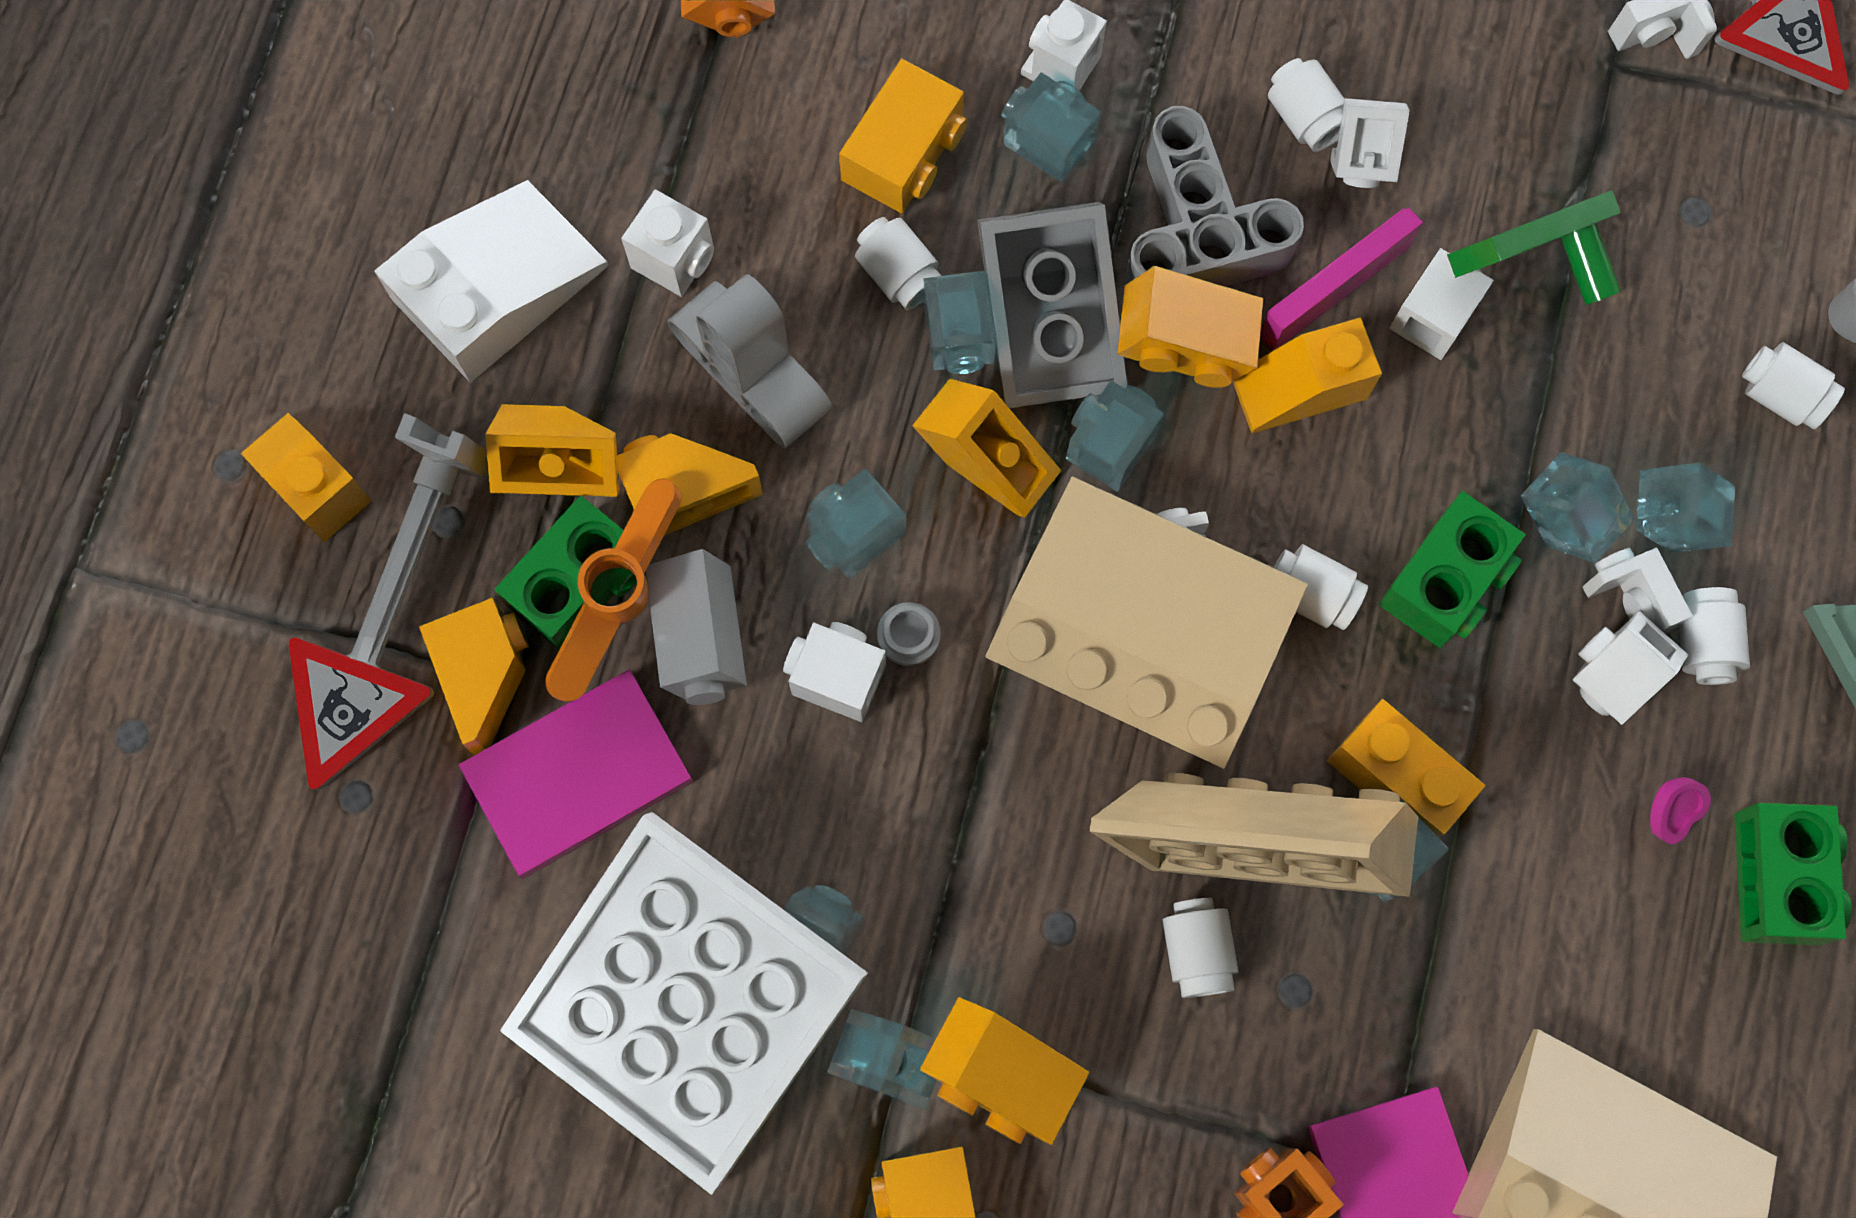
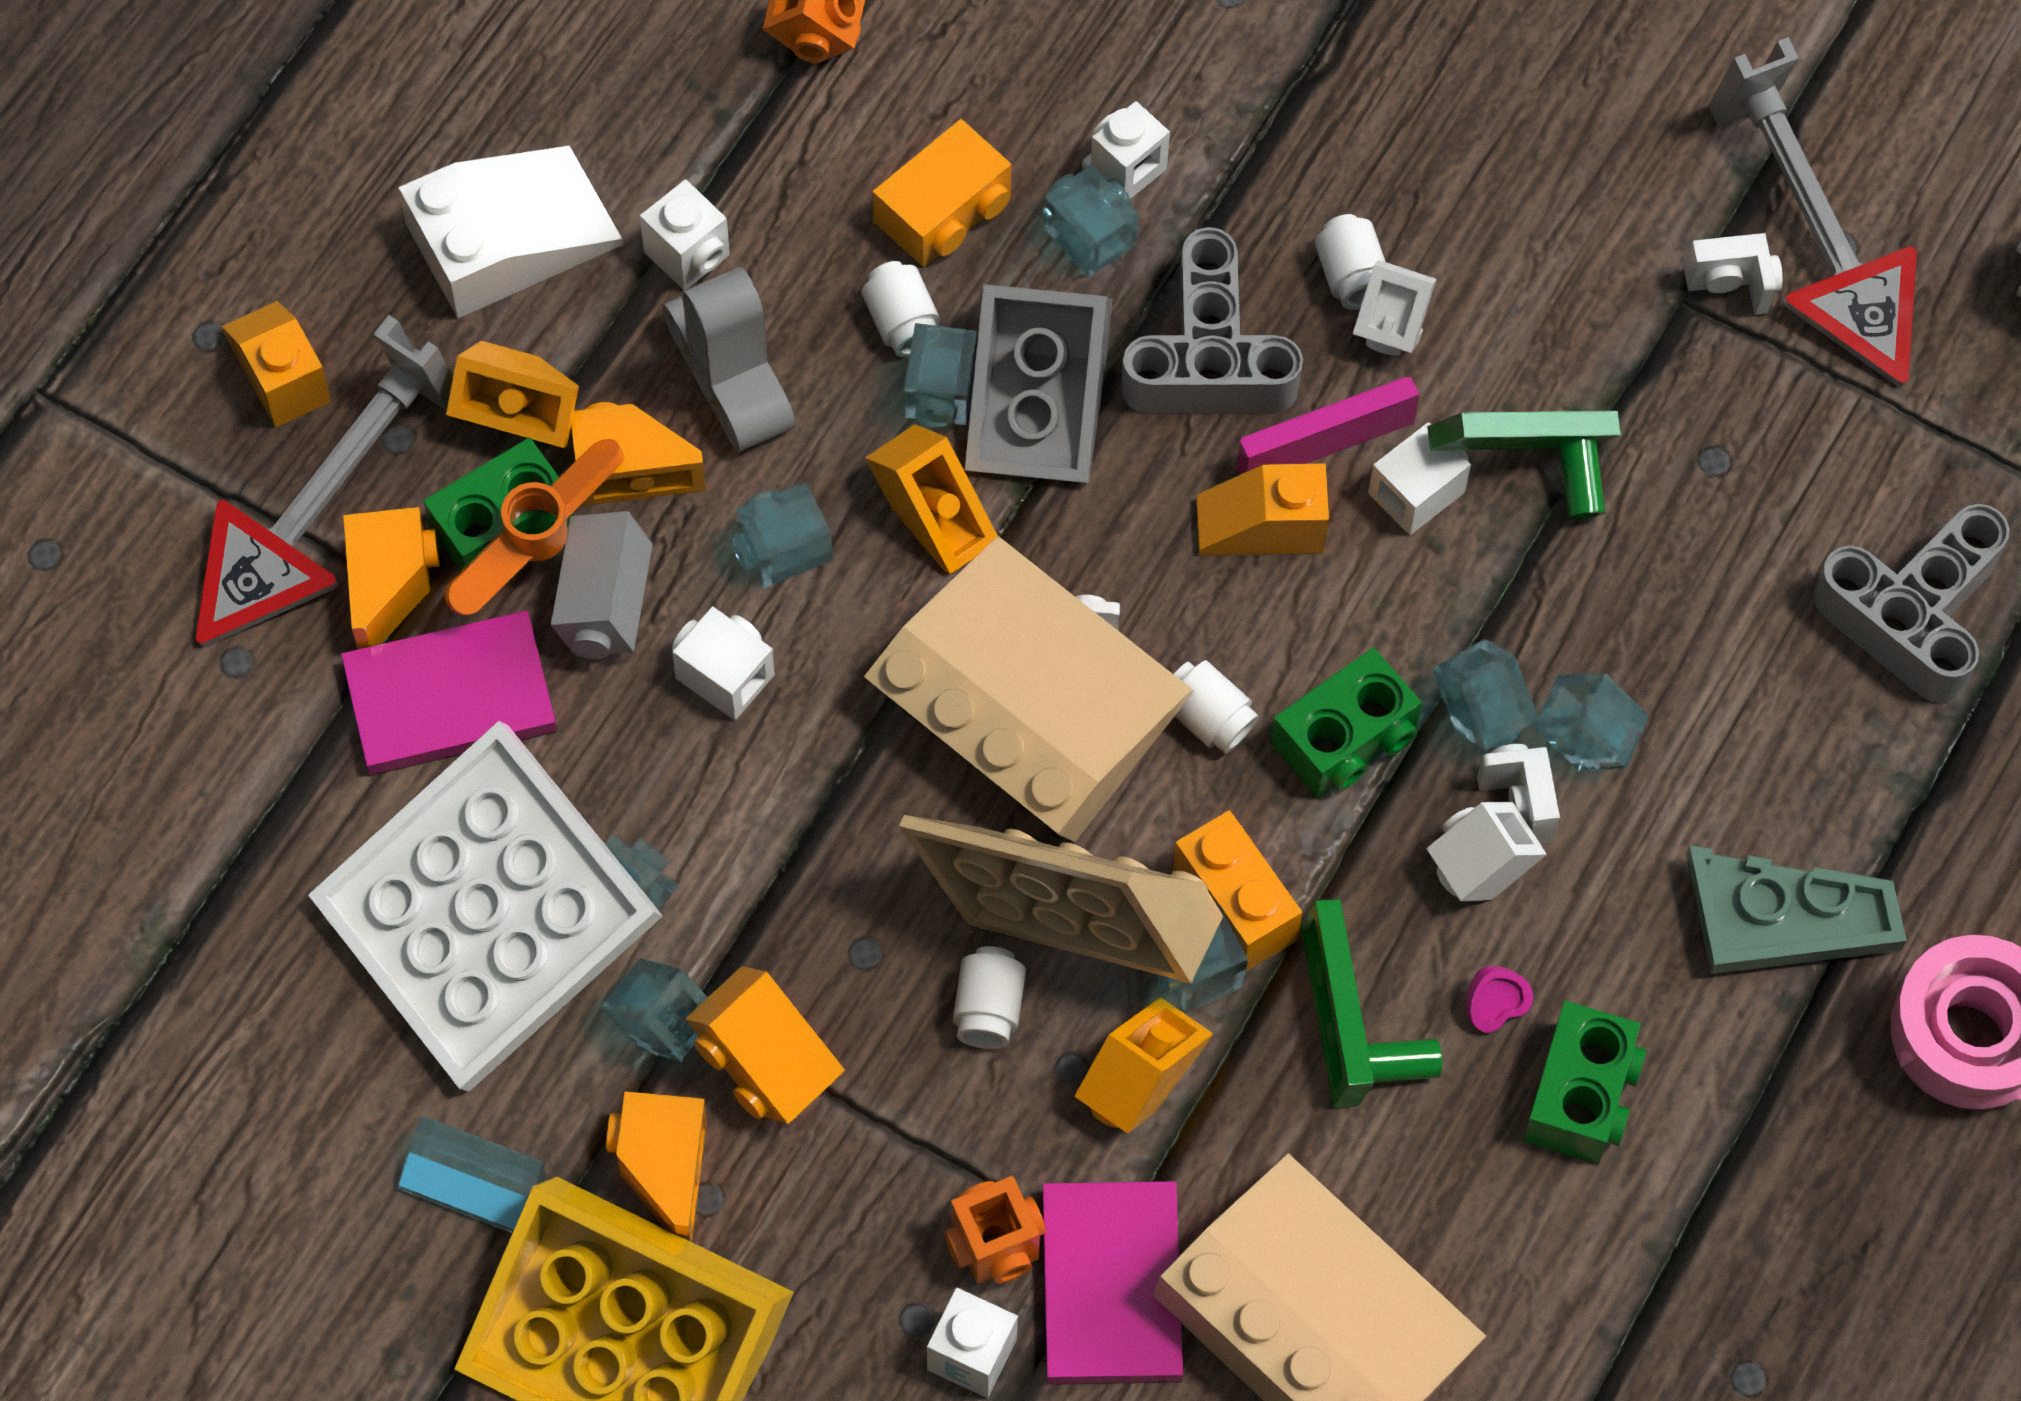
camera: 15 degrees right, 10 degrees down
(909, 634) = (803, 649): light grey plate -> none
(1113, 433) = (1059, 516): clear light blue brick -> none
(1190, 327) = (1161, 434): light orange brick -> none
(1371, 977) = (1141, 1065): none -> light orange slope
(1563, 912) = (1349, 1059): none -> green piece
(1715, 636) = (1584, 849): white brick -> none
(1792, 385) = (1743, 641): white brick -> none

